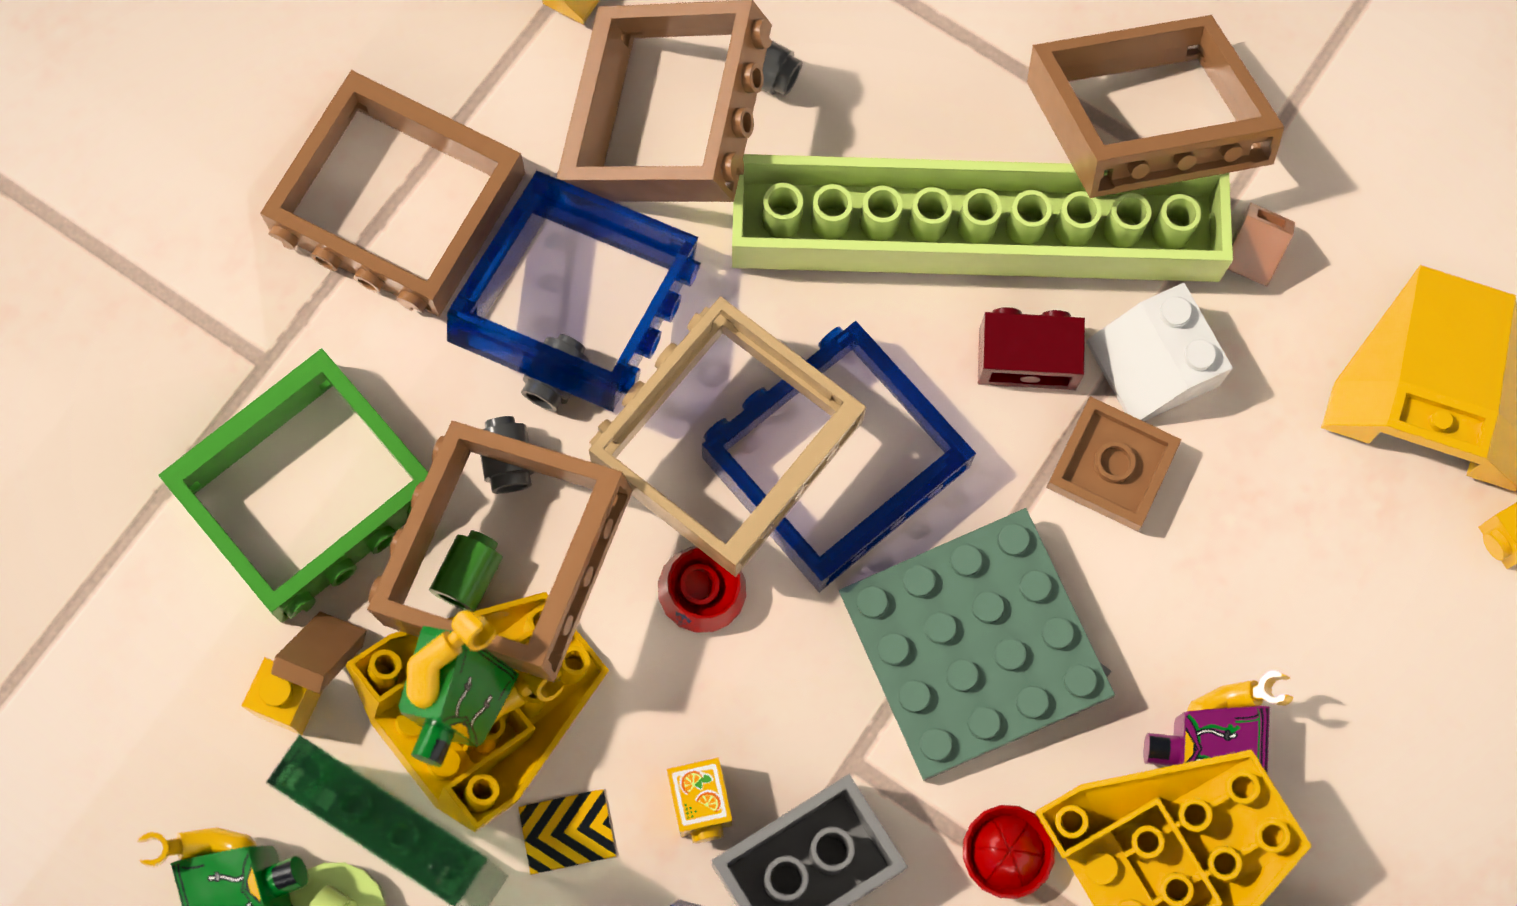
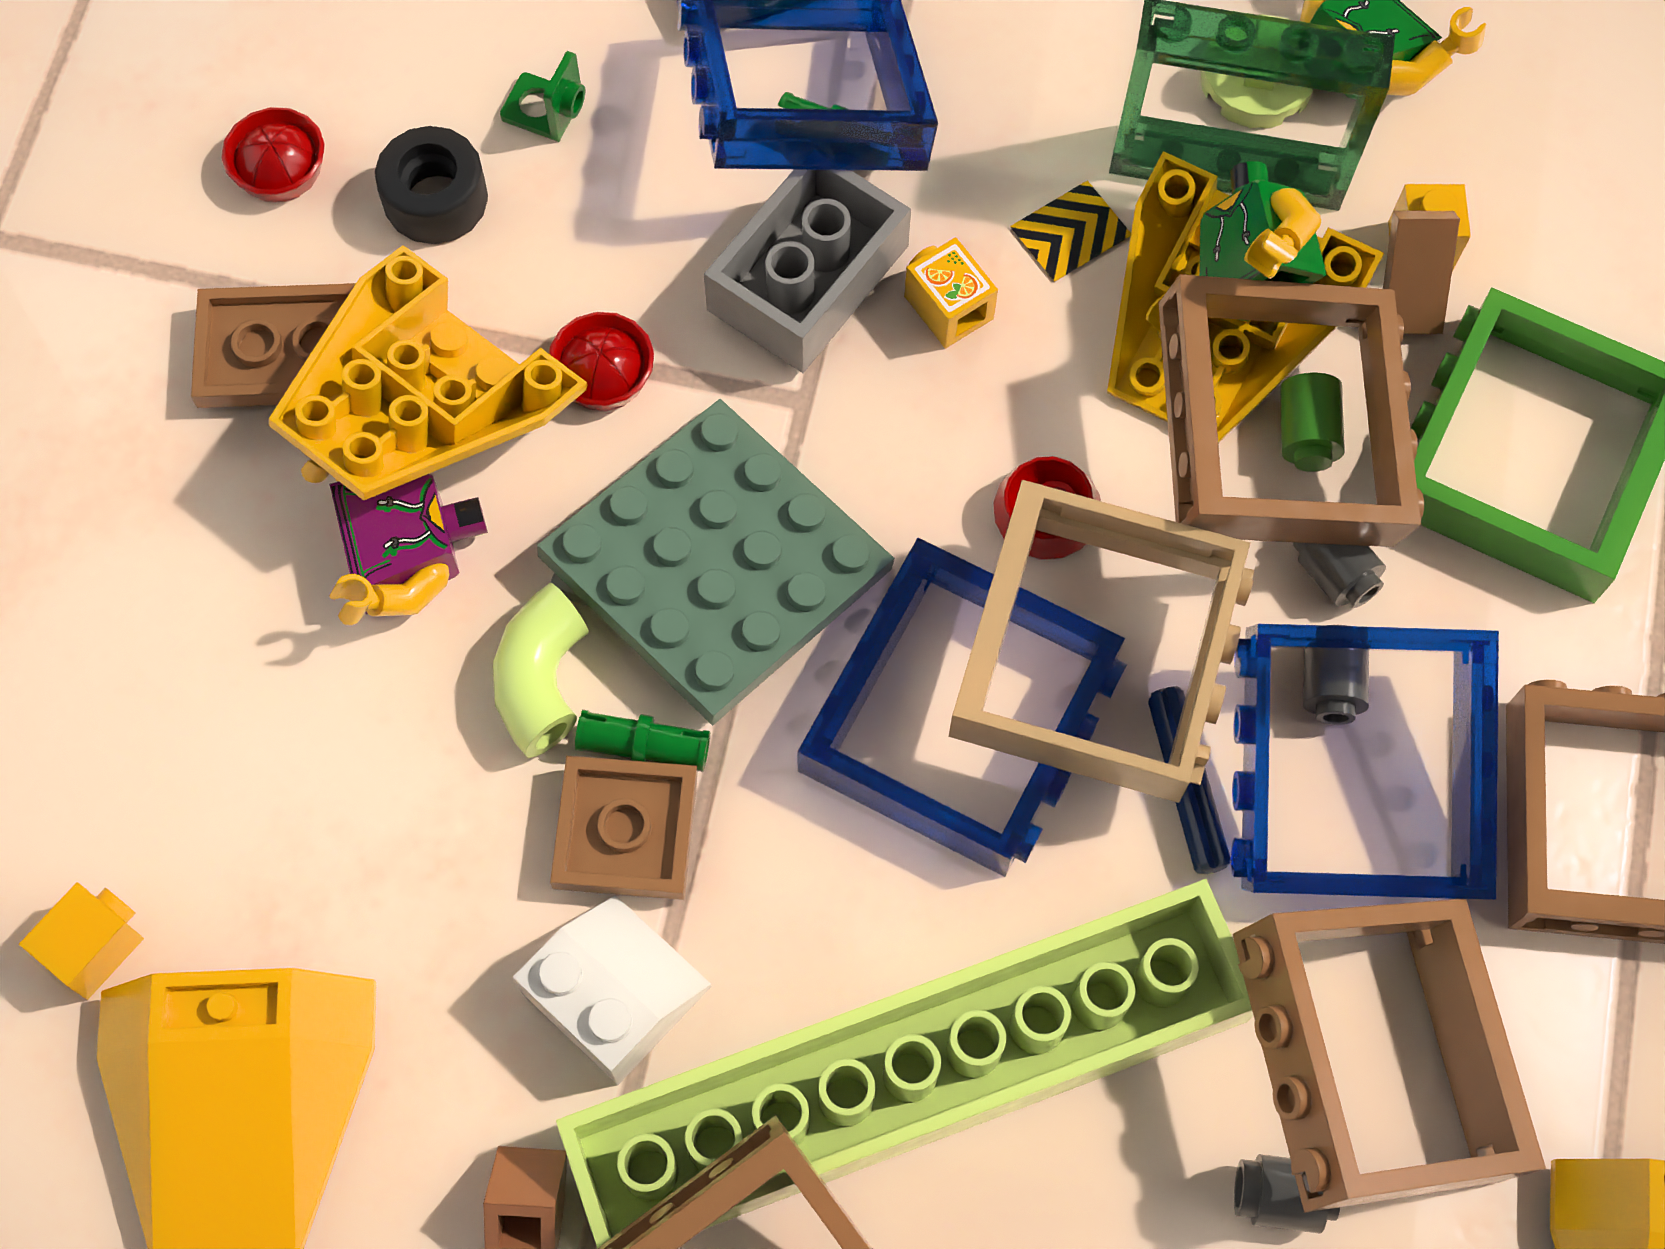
camera: 160 degrees right, 5 degrees down
(687, 394) = (1197, 806): none -> dark blue axle
(1031, 349) = (778, 928): dark red brick -> none
(1079, 522) = (642, 739): none -> green pin
(1148, 609) = (527, 668): none -> yellowish green cylinder

